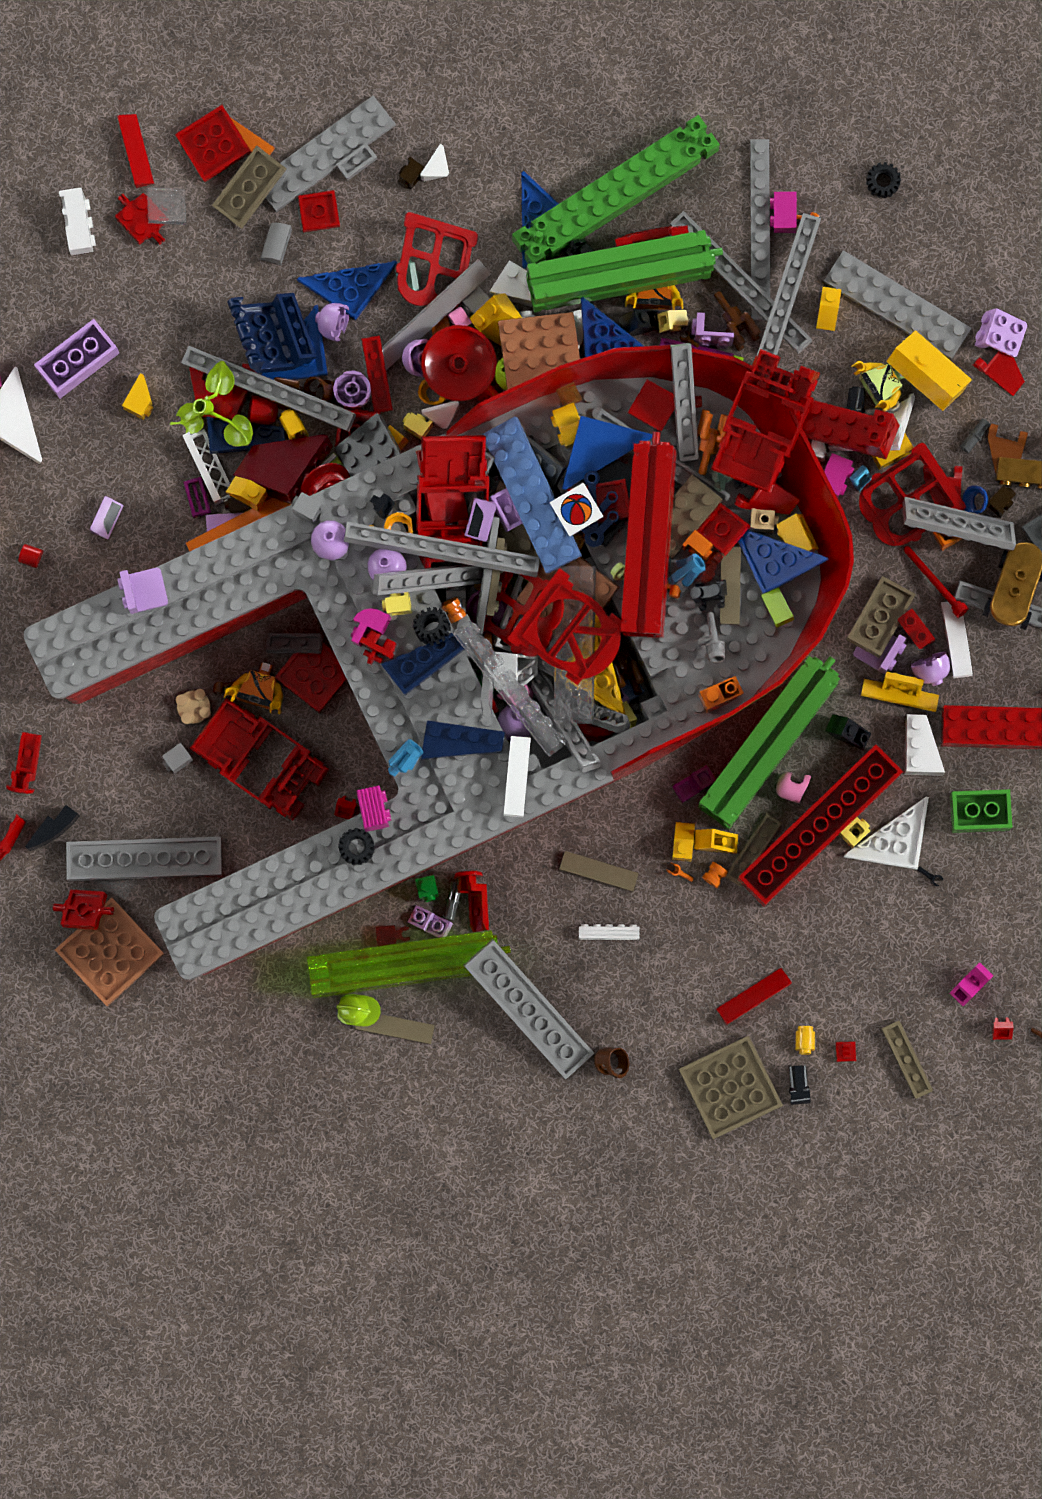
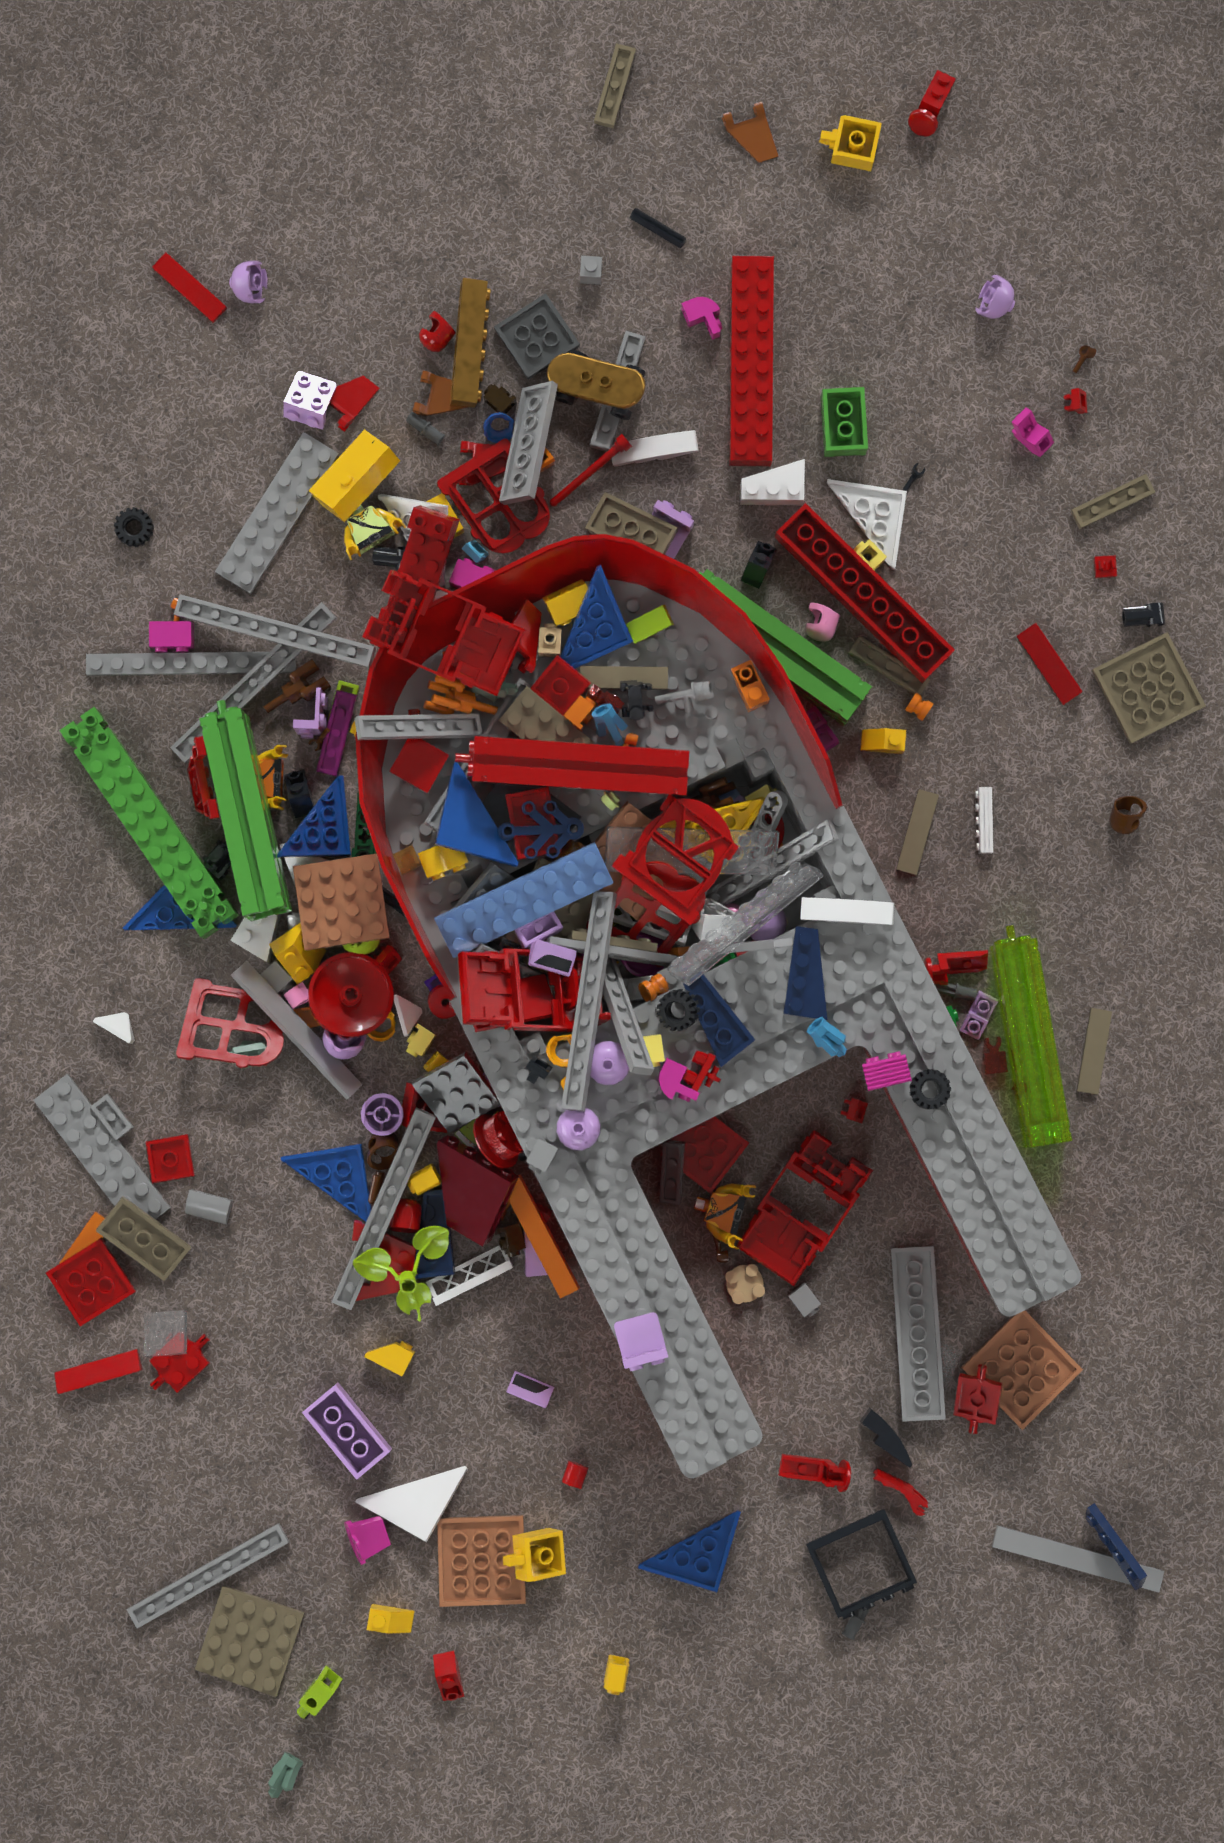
camera: 95 degrees left, 5 degrees up
(77, 221) = (185, 1435): white wedge -> none
(201, 512) = (522, 1282): magenta tile -> none
(247, 492) = (504, 1229): yellow slope -> none
(272, 333) = (317, 1206): dark blue slope -> none
(332, 320) = (300, 1139): lavender cylinder -> none
(350, 286) = (260, 1121): blue tile -> none
(358, 1010) = (1079, 1090): lime piece -> none
(377, 374) = (362, 1087): red tile -> none
(410, 173) = (126, 1055): dark brown brick -> none
(528, 1009) = (1077, 904): light grey plate -> none
(576, 509) = (544, 847): tile -> none
(672, 320) = (298, 758): light yellow brick -> none
(678, 871) = (915, 747): orange hand -> none
(715, 841) = (882, 706): yellow slope -> none
(805, 1040) = (1095, 609): yellow brick -> none
(828, 308) = (282, 586): yellow slope -> none
(900, 690) = (713, 508): yellow bracket -> none
(916, 629) = (645, 490): red bracket -> none
(932, 669) = (688, 472): lavender cylinder -> none

